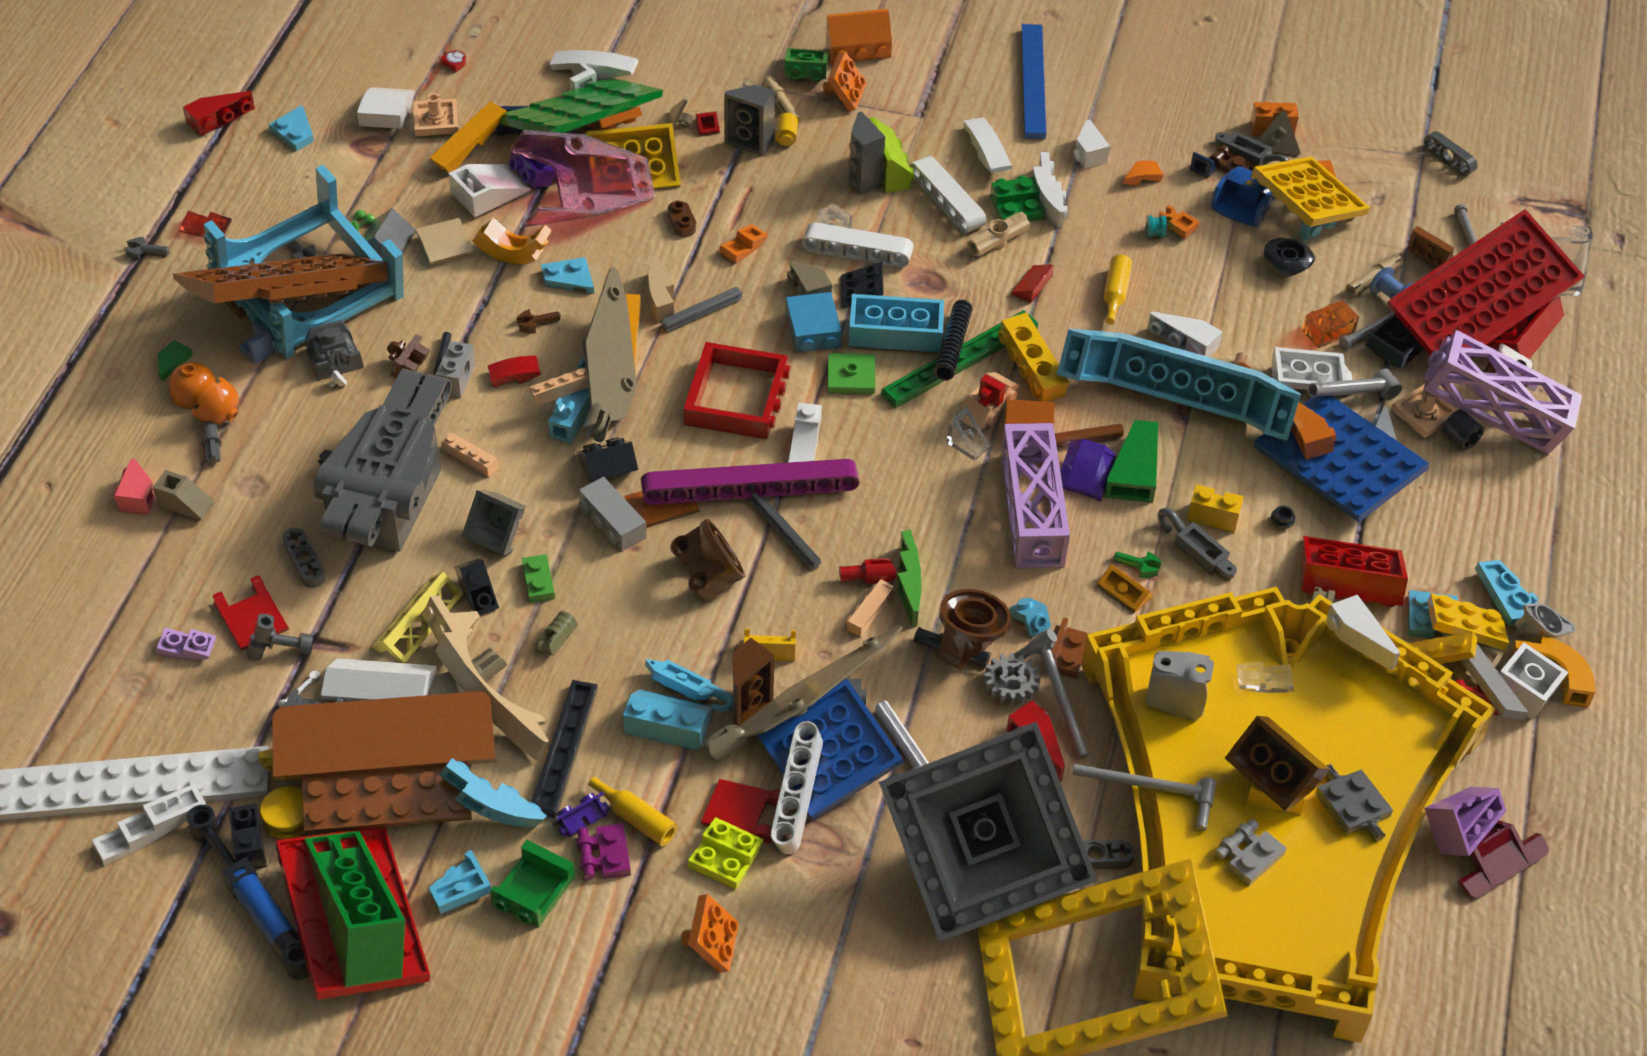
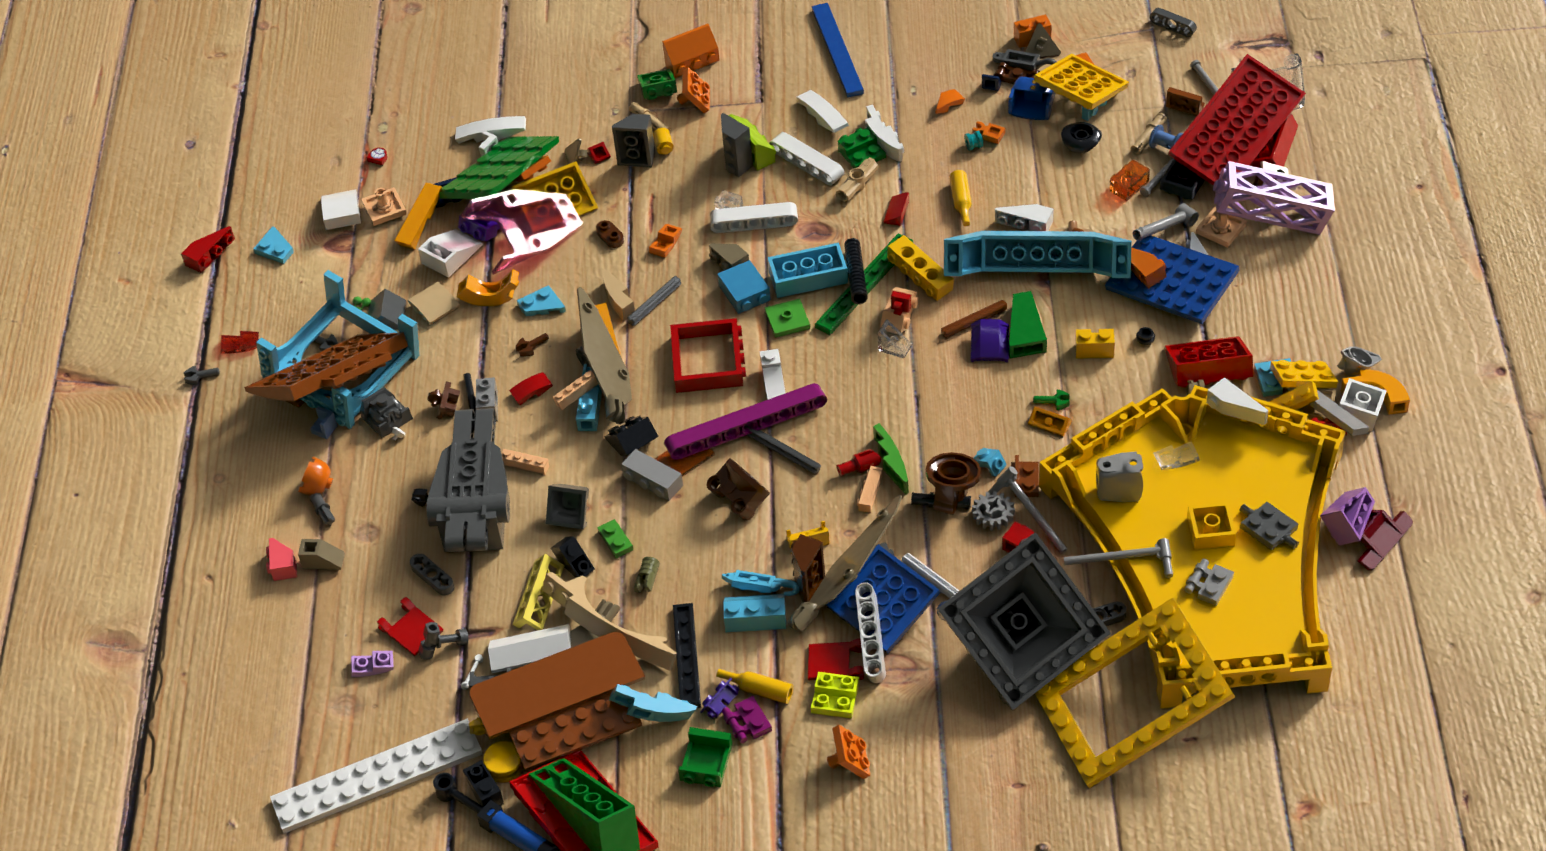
camera: 10 degrees left, 0 degrees up
(146, 827) = (407, 798): white slope -> none
(171, 357) = (261, 453): green tile -> none
(189, 382) = (287, 469): orange cylinder -> none
(460, 884) = (653, 773): medium azure wing -> none
(863, 282) = (769, 245): black hinge -> none
(1030, 412) = (935, 315): orange slope -> none
(1049, 532) = (984, 404): lavender piece -> none
(1091, 147) = (902, 91): white slope -> none
(1196, 542) = (1089, 374): dark grey piece -> none
(1276, 763) = (1207, 513): reddish brown slope -> none
(1302, 367) = (1124, 219): white slope -> none
(1463, 429) = (1253, 233): black piece -> none
(1504, 590) = (1322, 344): medium azure wing -> none

